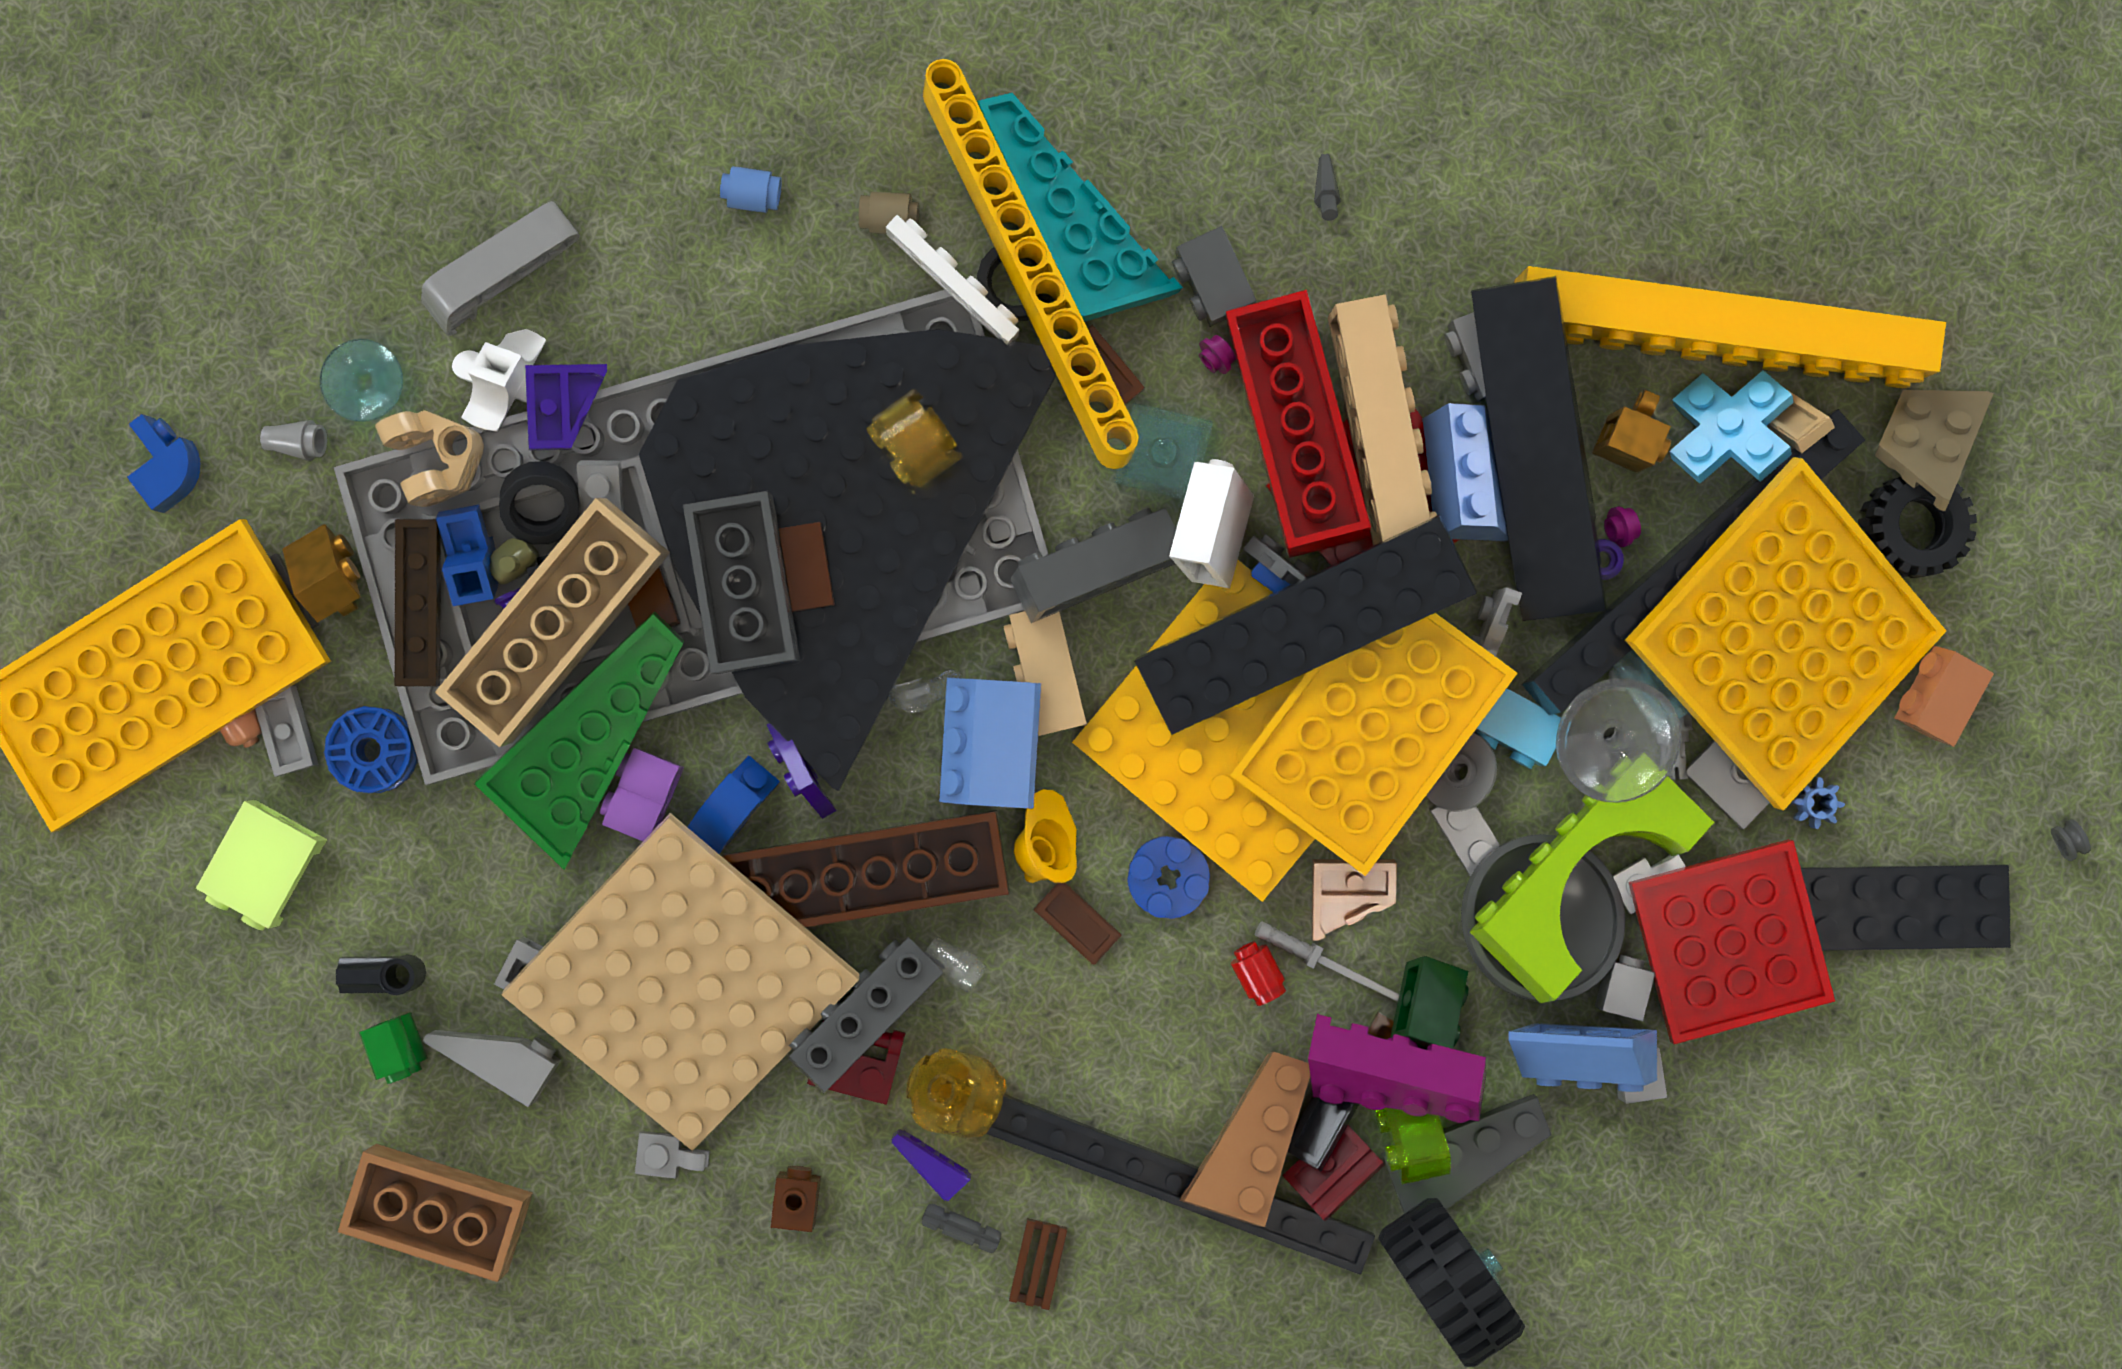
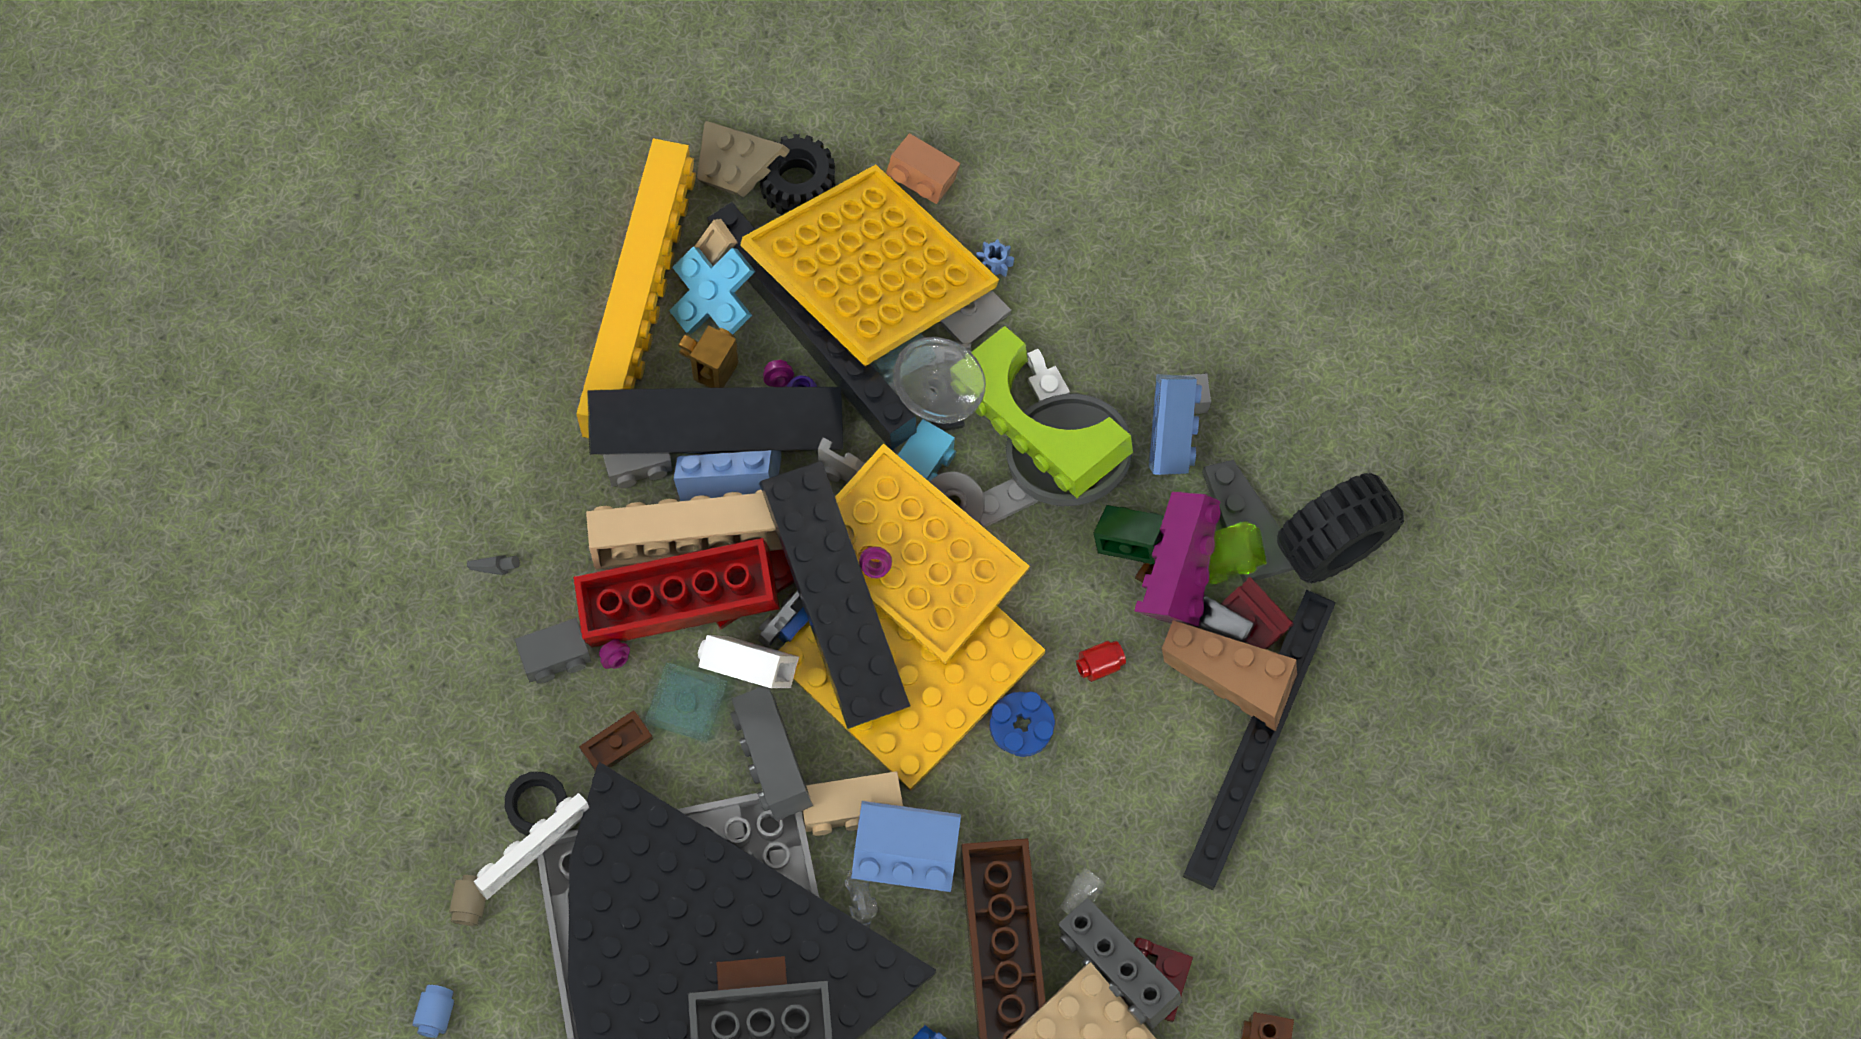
camera: 90 degrees left, 20 degrees down
(801, 774) = (919, 1001): dark purple wing -> none
(914, 439) = (657, 876): clear yellow brick -> none
(938, 1170) = (1249, 916): dark purple slope -> none
(955, 1093) = (1187, 876): clear yellow brick -> none
(961, 1228) = (1294, 905): dark grey axle -> none
(1029, 281) = (508, 784): yellow beam -> none
(1030, 1298) = (1327, 835): reddish brown tile -> none
(1048, 841) = (989, 812): yellow piece -> none
(1077, 922) = (1053, 796): reddish brown tile -> none
(1081, 228) = (516, 746): teal wing -> none
(1312, 955) = (1088, 620): light grey sword -> none
(1346, 896) = (1042, 591): wing -> none
(1349, 675) = (875, 569): none -> magenta plate
(1626, 988) = (1126, 397): light grey brick -> none
(1731, 941) = (1093, 321): red plate -> none
(1910, 906) = (1073, 251): black plate -> none
(2071, 840) = (1032, 97): dark grey bush -> none

